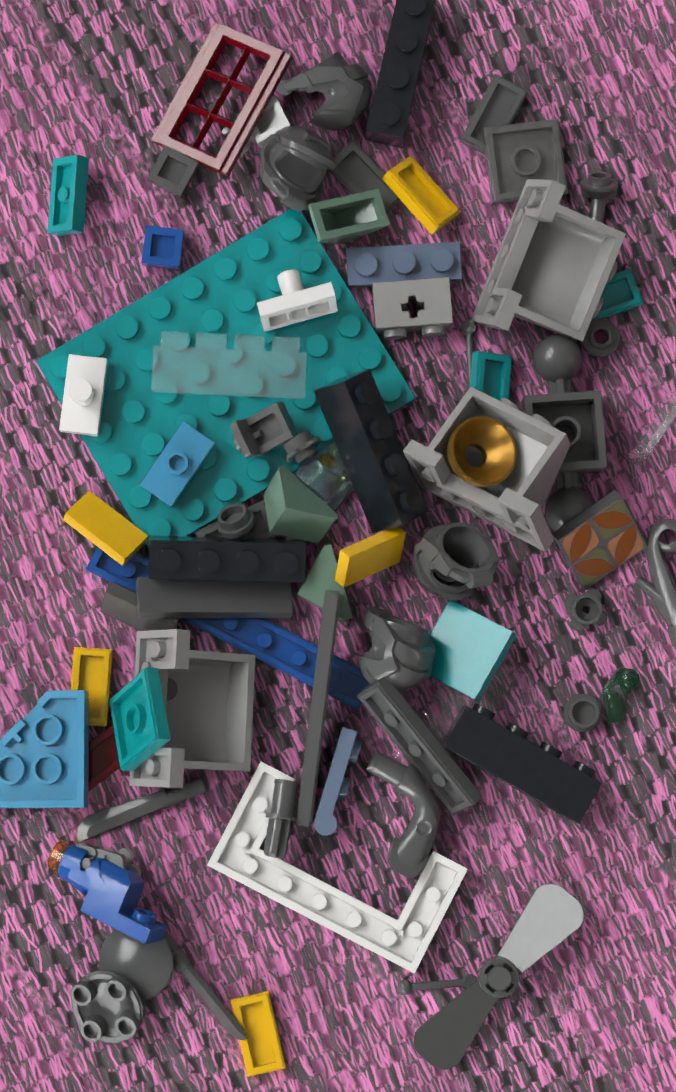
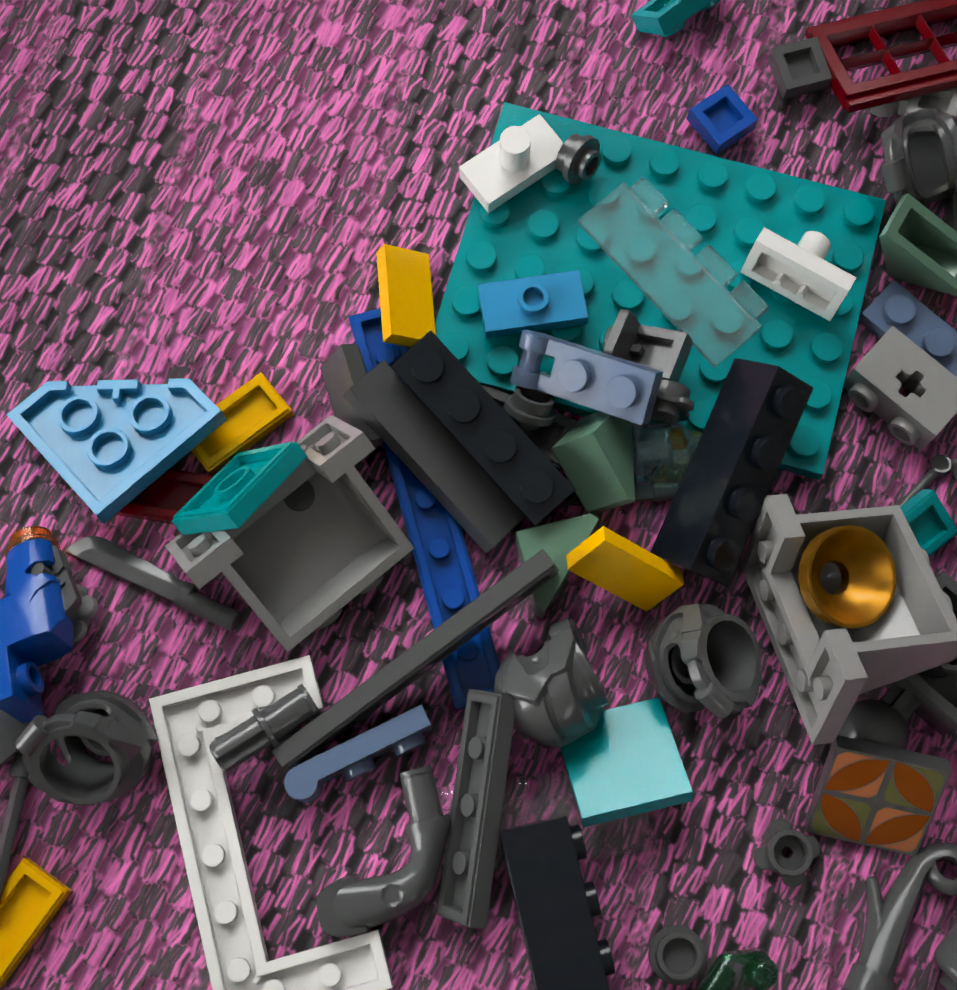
camera: 45 degrees right, 10 degrees down
(117, 358) = (579, 158): none -> dark grey plate
(201, 899) = (107, 727): none -> dark grey helmet
(249, 478) = (588, 377): none -> sand blue plate

